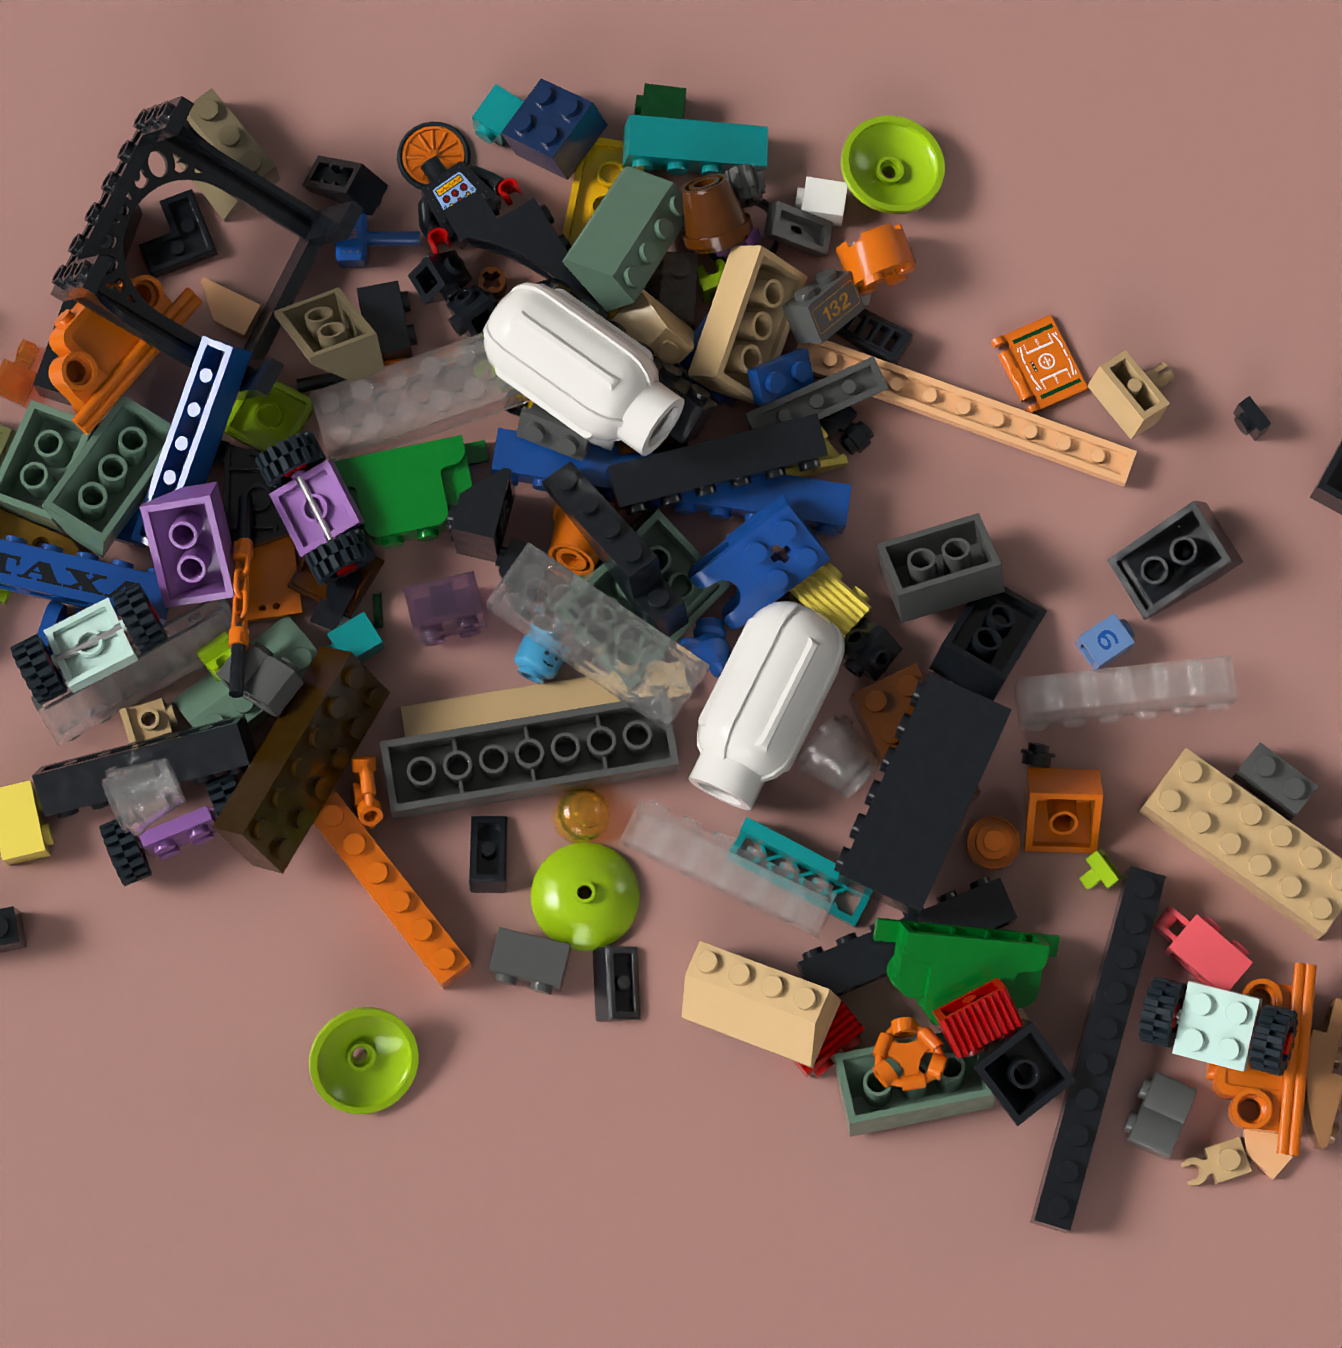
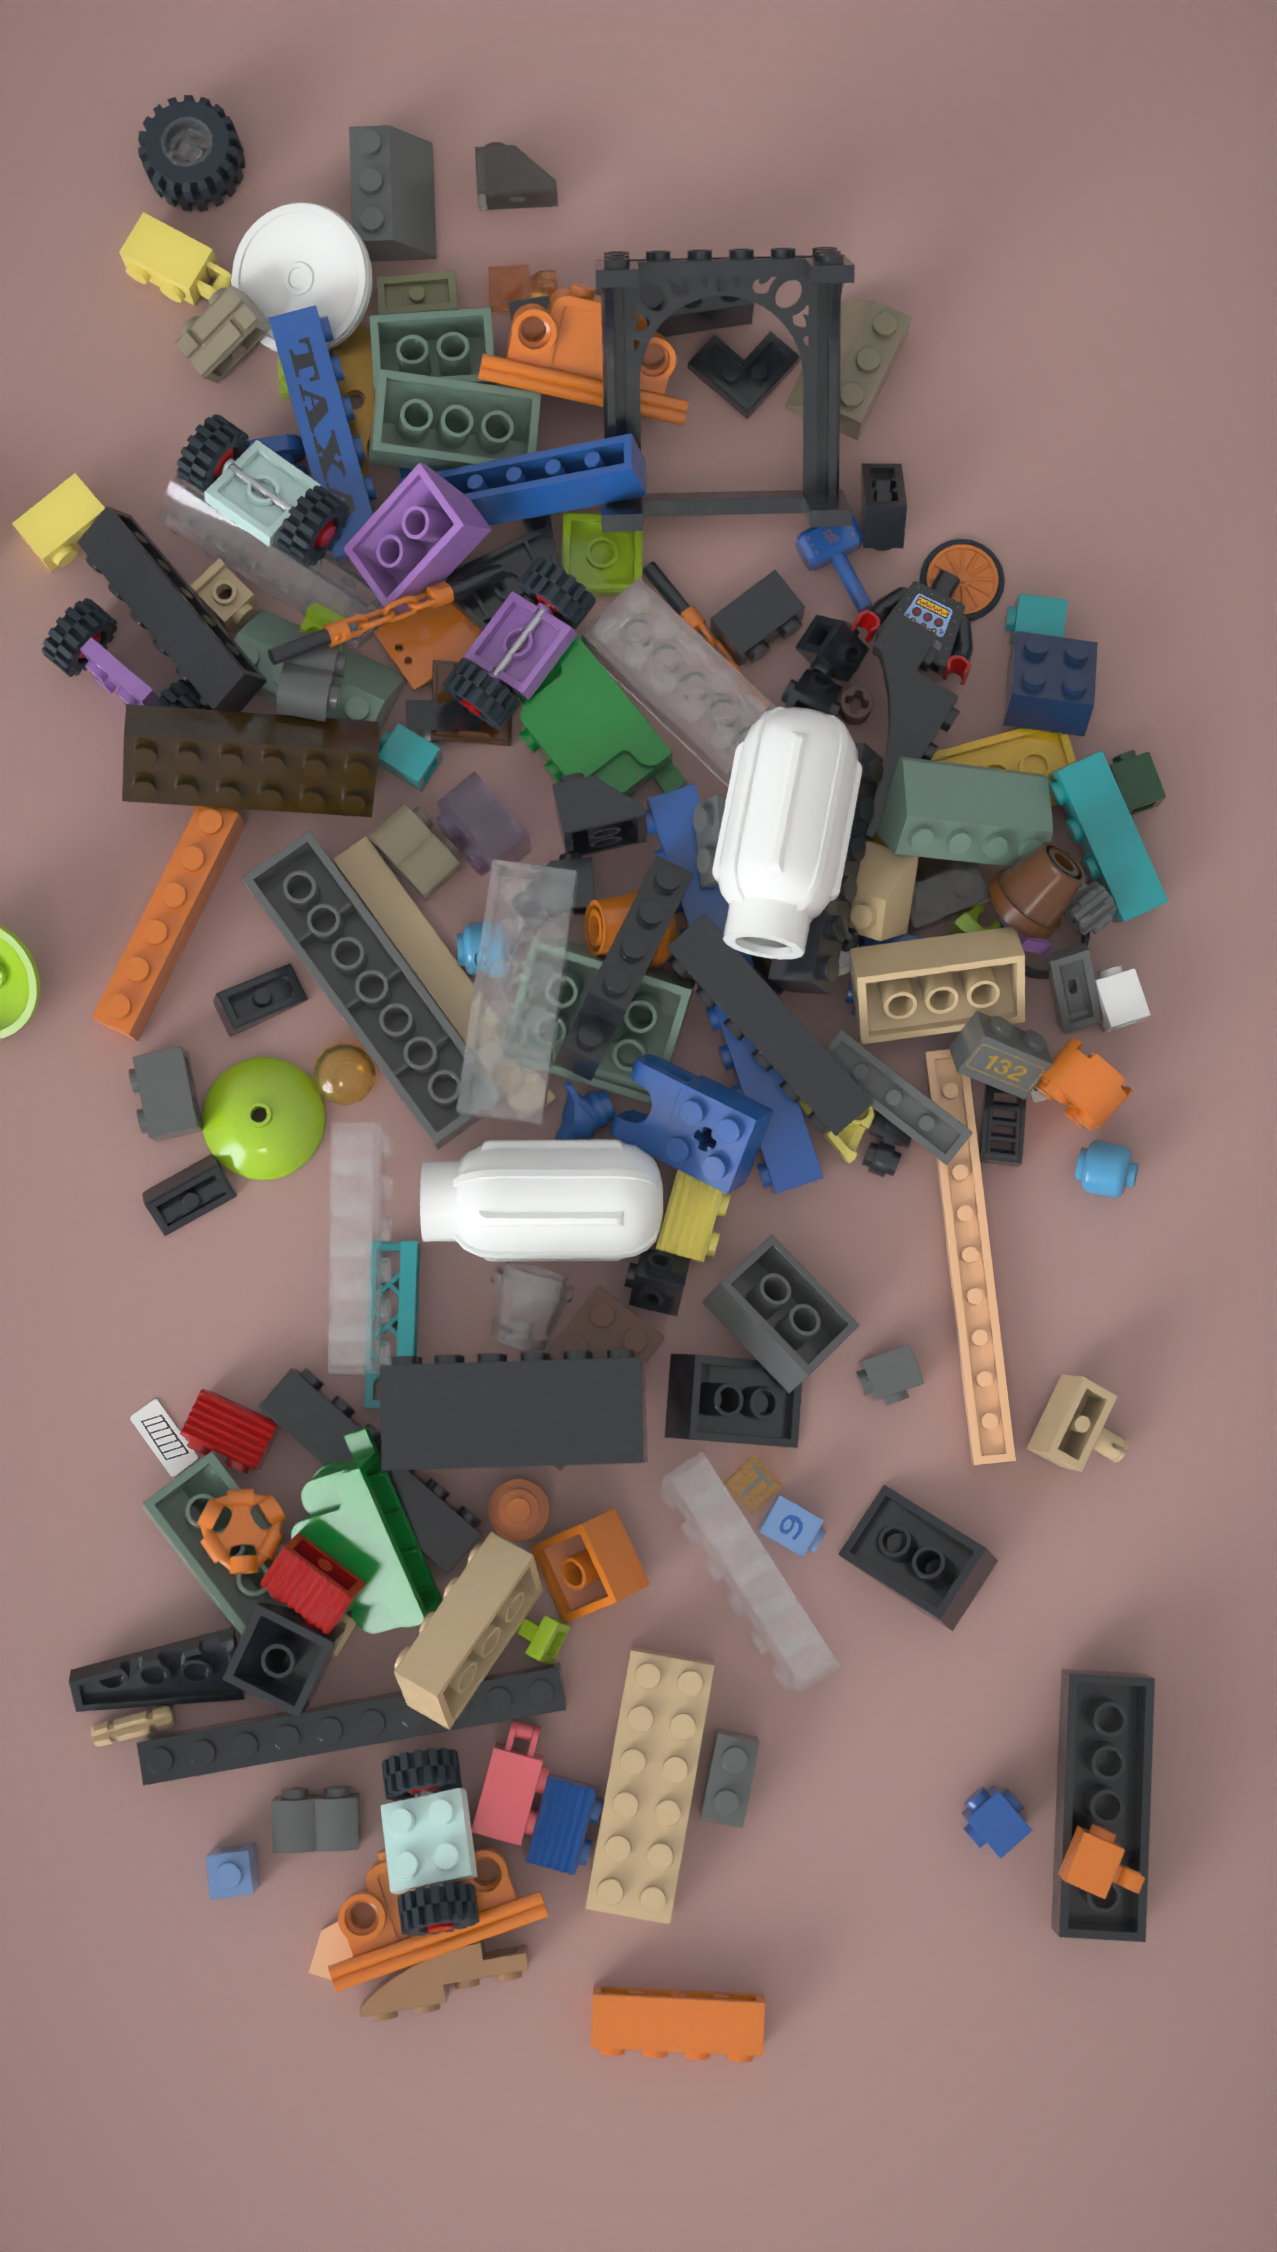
camera: 65 degrees right, 5 degrees up
(142, 793) = (127, 617): clear piece -> none
(230, 308) = (695, 458): light nougat tile -> none
(333, 335) = (704, 566): dark tan slope -> none
(364, 791) = (233, 854): orange piece -> none
(376, 601) = (452, 767): clear green leg -> none
(433, 672) = (416, 851): none -> dark tan brick
(757, 1004) = (226, 1348): tan slope -> none
(780, 376) = (901, 1047): blue plate -> none
(800, 1096) = (163, 1437): none -> white sticker
(900, 149) = (1218, 1045): lime dish -> none
(948, 275) = (1106, 1169): none -> dark azure head
(990, 1179) = (160, 1676): none -> black wing
(1017, 1226) = (133, 1725): none -> tan axle
(1026, 512) = (890, 1375): none -> dark grey brick
(1037, 755) = (634, 1511): black plate -> none
(1040, 364) = (1060, 1313): orange piece -> none
(1059, 656) = (752, 1484): none -> clear yellow tile
(1071, 916) = (468, 1630): none -> tan brick
(1168, 1197) = (232, 1871): none -> medium blue brick
(1222, 1160) = (303, 1910): tan plate -> none
(1251, 419) = (1113, 1565): black plate -> none
(1252, 924) = (563, 1823): none -> blue brick

